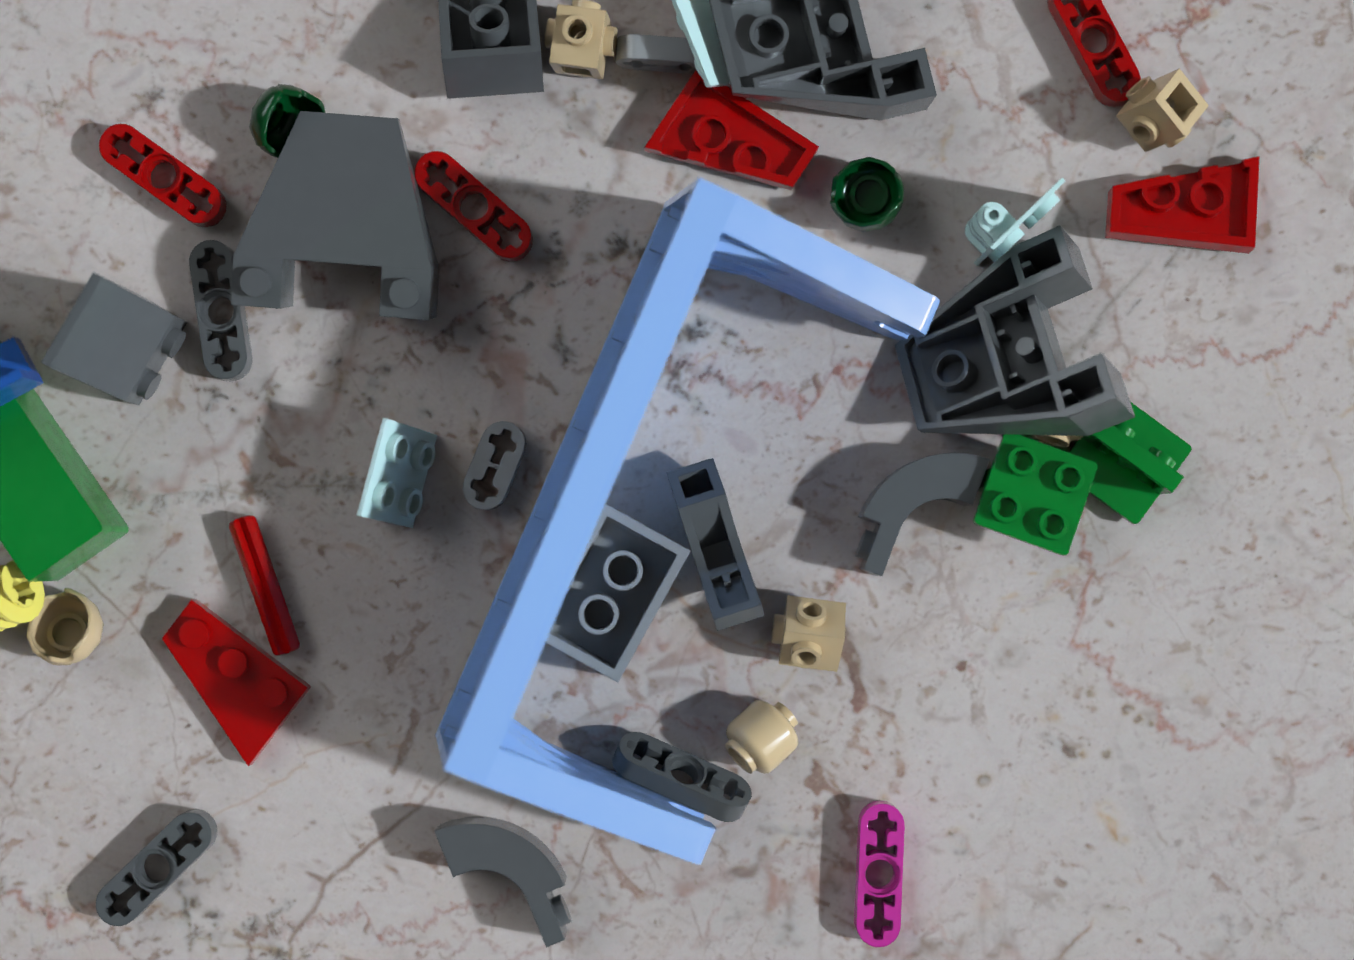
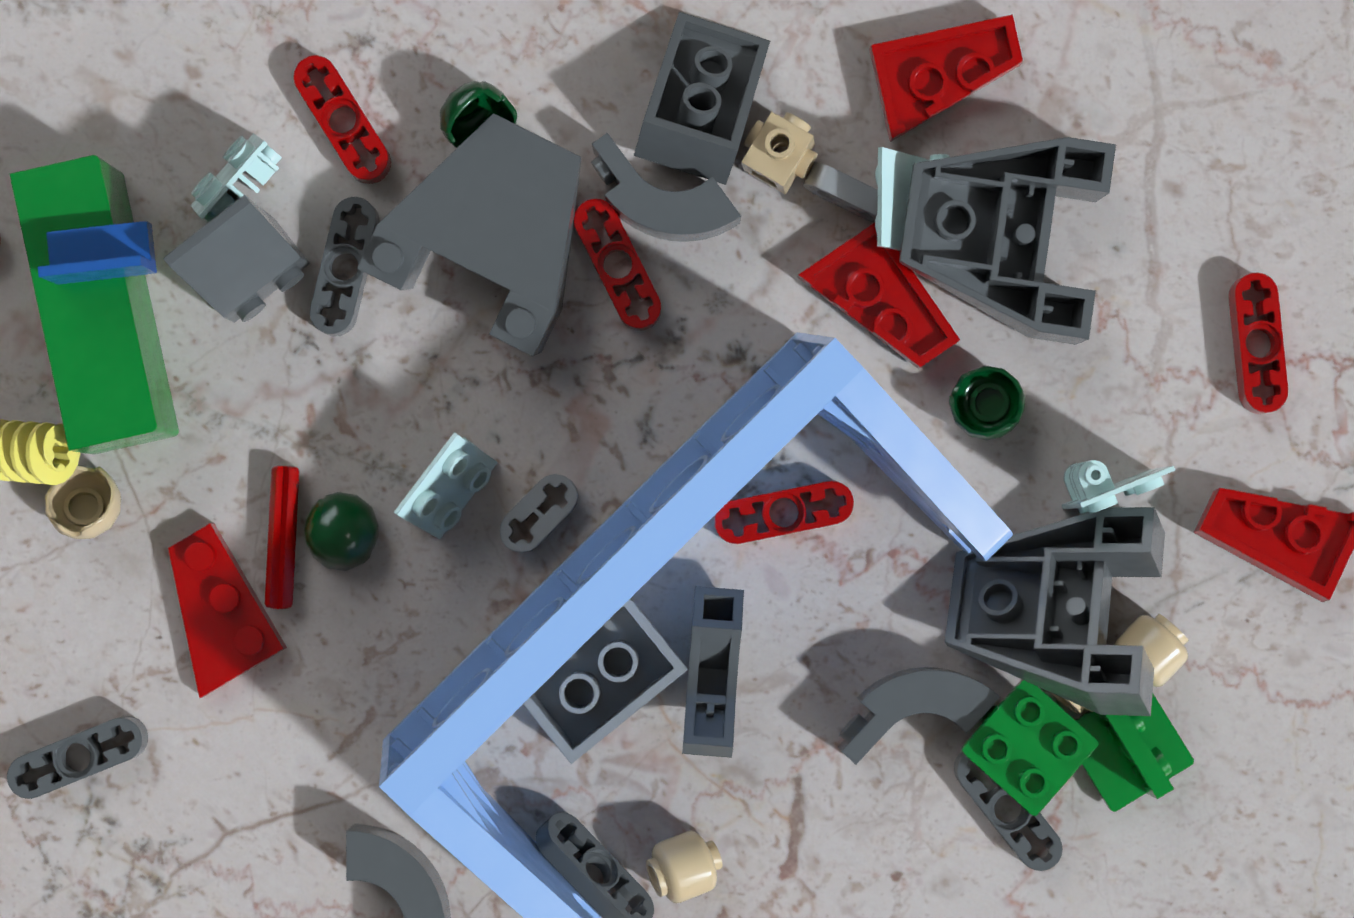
camera: 30 degrees right, 0 degrees up
(84, 245) = (243, 155): none -> light aqua hinge
(317, 557) = (341, 531): none -> dark green hair
(494, 141) = (658, 212): none -> dark grey arch
(744, 343) = (821, 517): none -> red beam
(810, 633) = (768, 789): tan brick -> none
(1063, 589) = (1020, 844): none -> dark grey beam
(1120, 348) = (1162, 643): none -> tan head
(1161, 110) = (1294, 436): tan brick -> none

